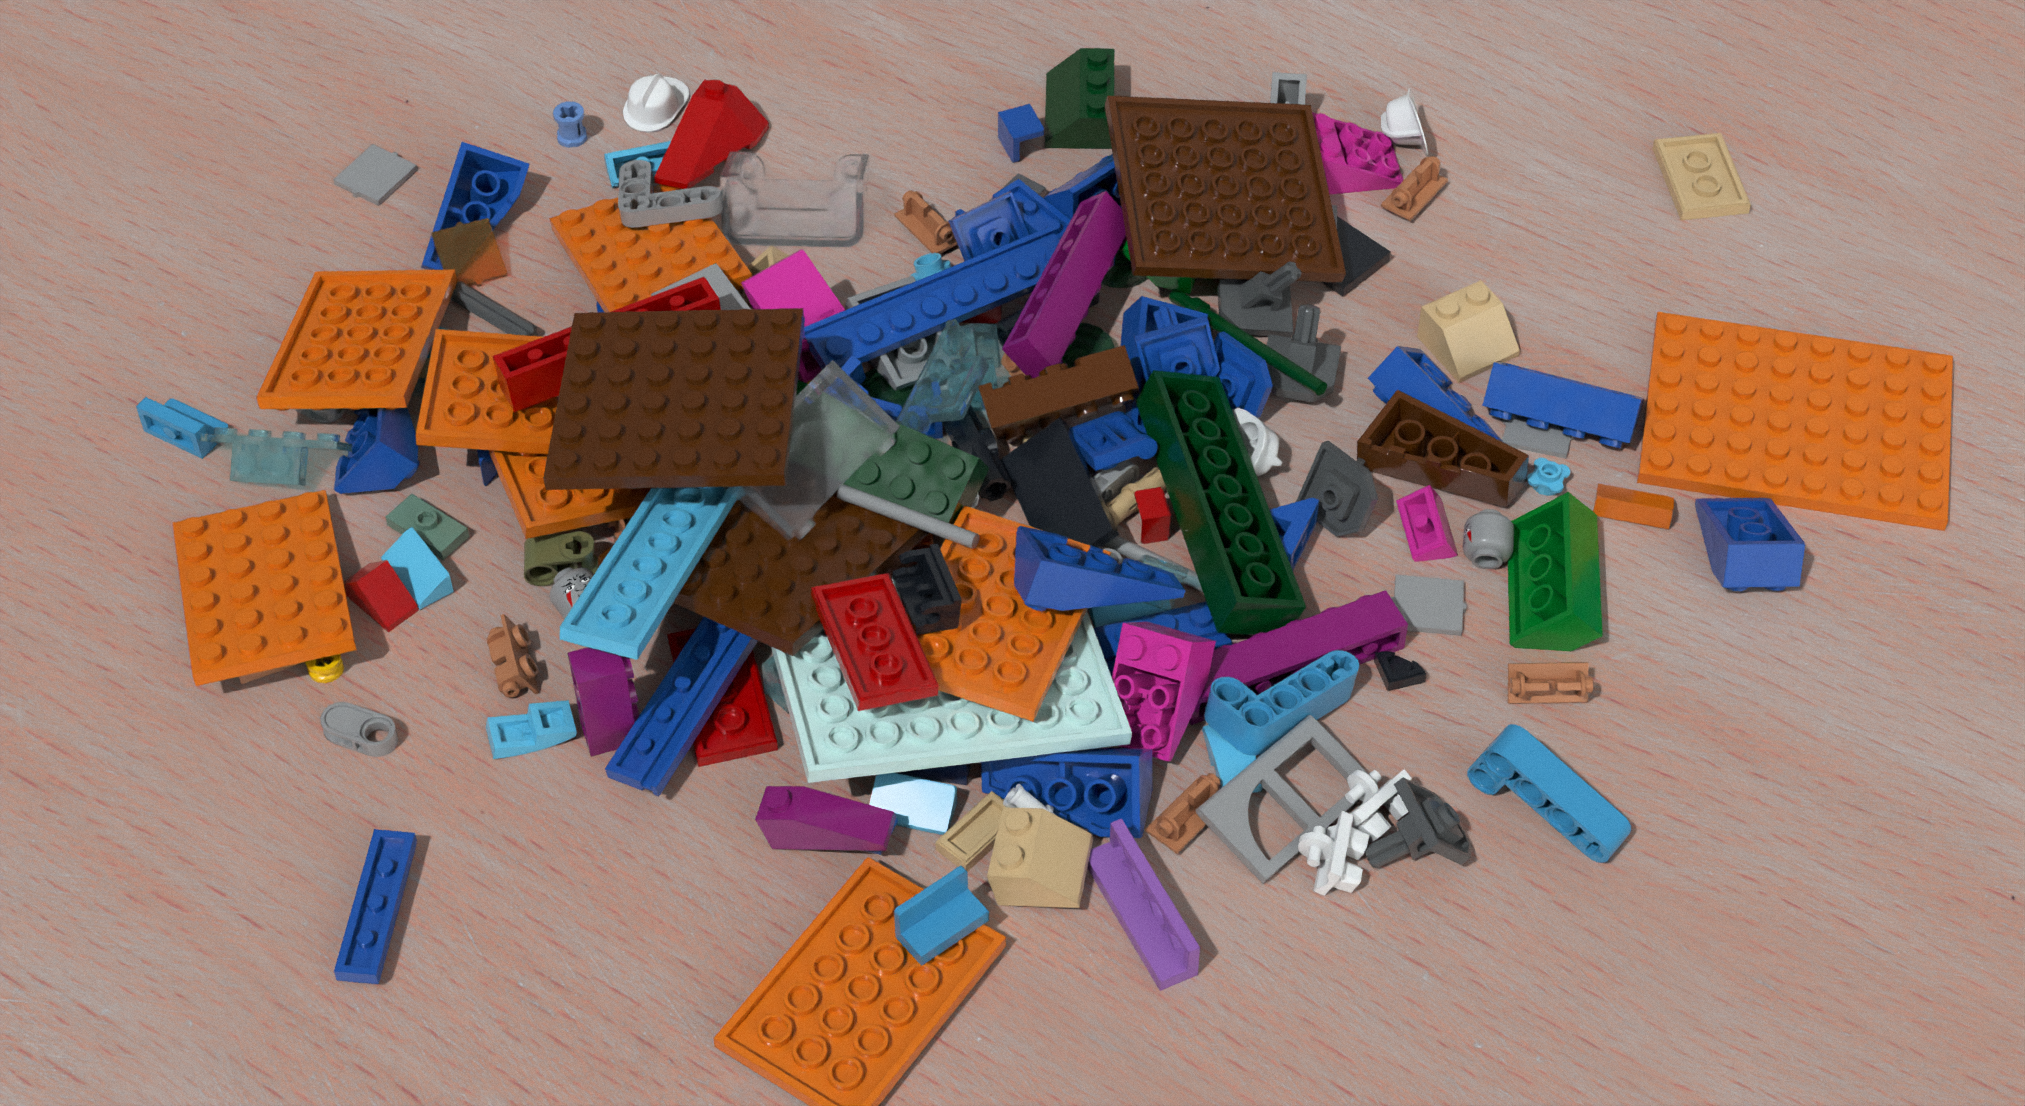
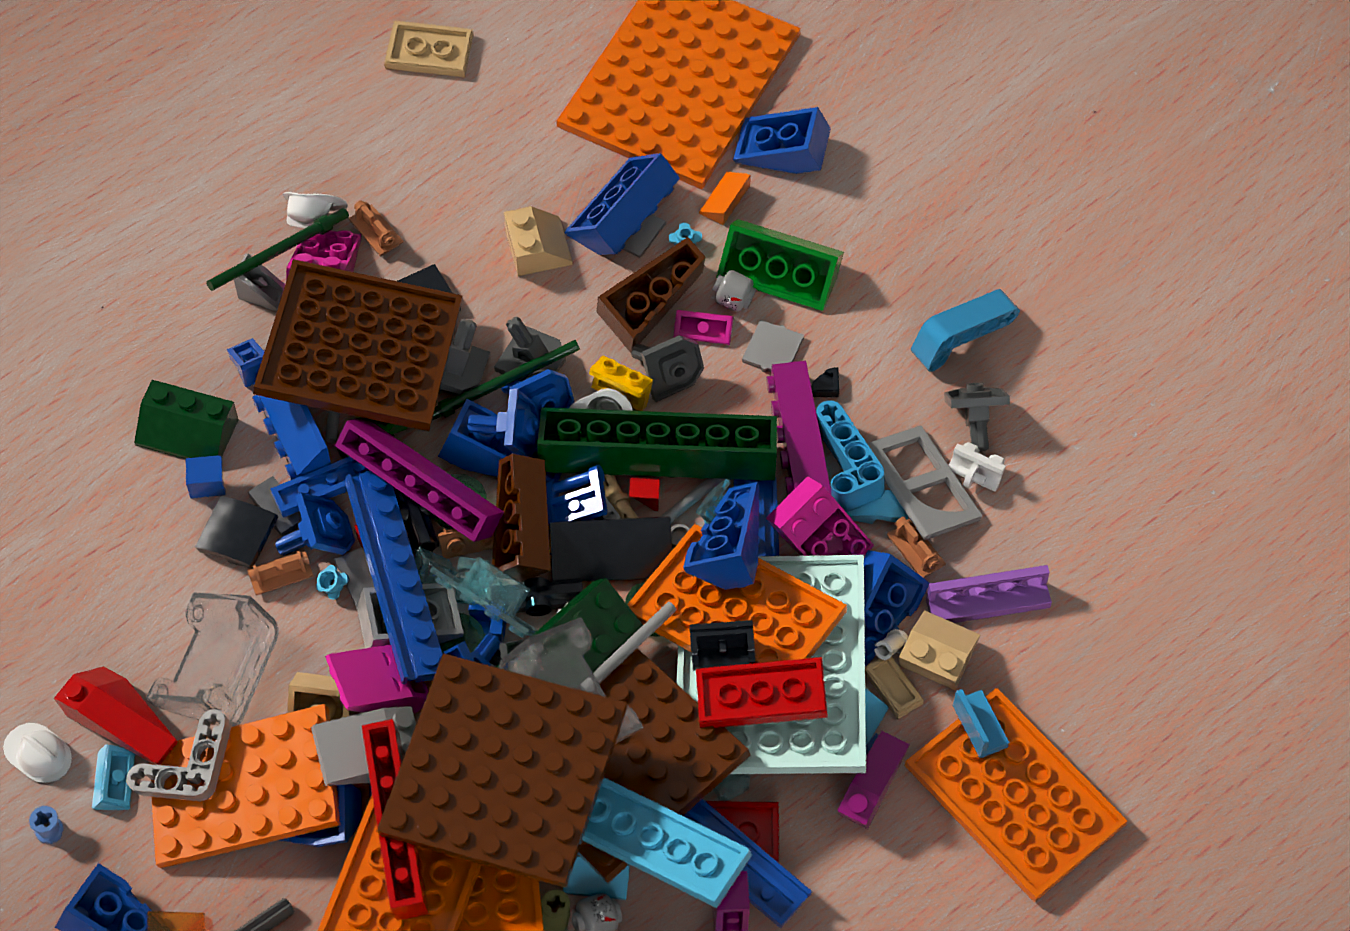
camera: 75 degrees left, 10 degrees up
(961, 176) = (236, 531): none -> black slope
(1294, 450) = (616, 376): none -> yellow bracket
(1295, 525) = (688, 402): blue slope -> none
(1365, 788) = (940, 429): white hips -> none
(1386, 135) = (321, 226): none -> dark green bar
(1419, 377) = (578, 290): blue wedge -> none
(1549, 682) = (869, 297): nougat hinge -> none

